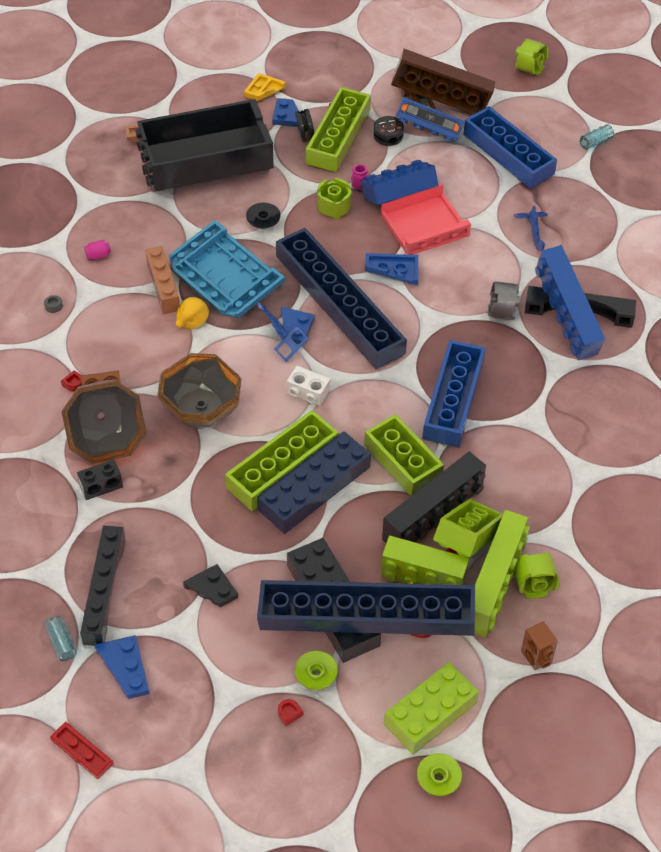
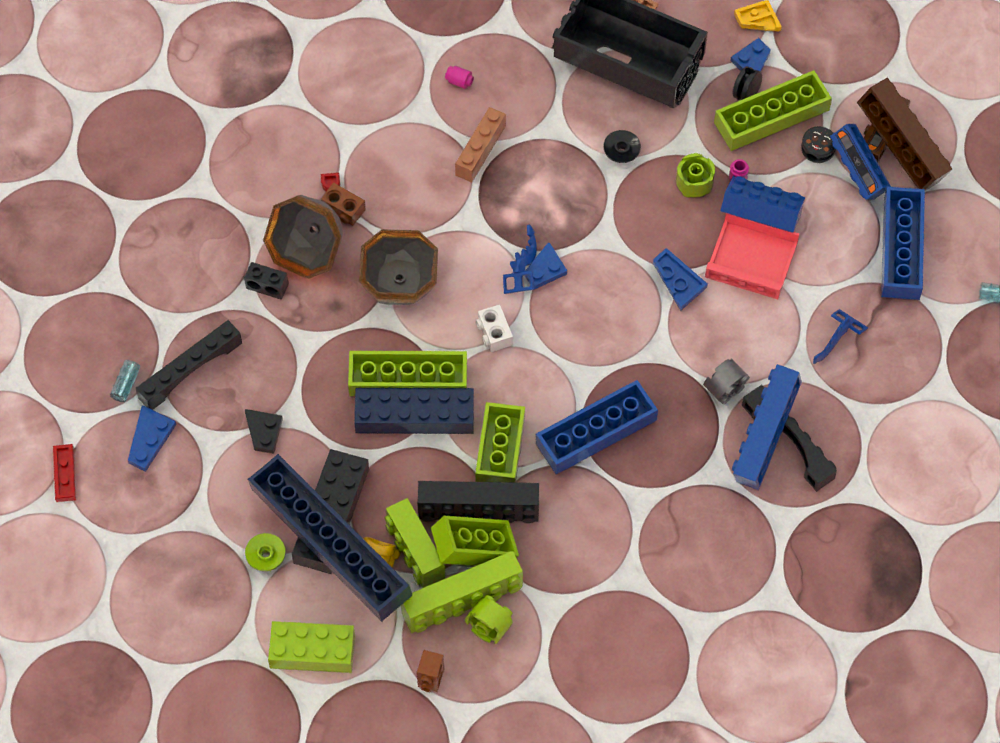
camera: 45 degrees right, 10 degrees up
(53, 304) = (381, 100): dark grey tile -> none
(191, 313) = (473, 193): yellow piece -> none
(224, 271) = (537, 174): dark azure slope -> none
(289, 711) = (220, 565): red tile -> none
(341, 298) = (599, 272): dark blue brick -> none
(443, 766) = (265, 687): lime dish -> none

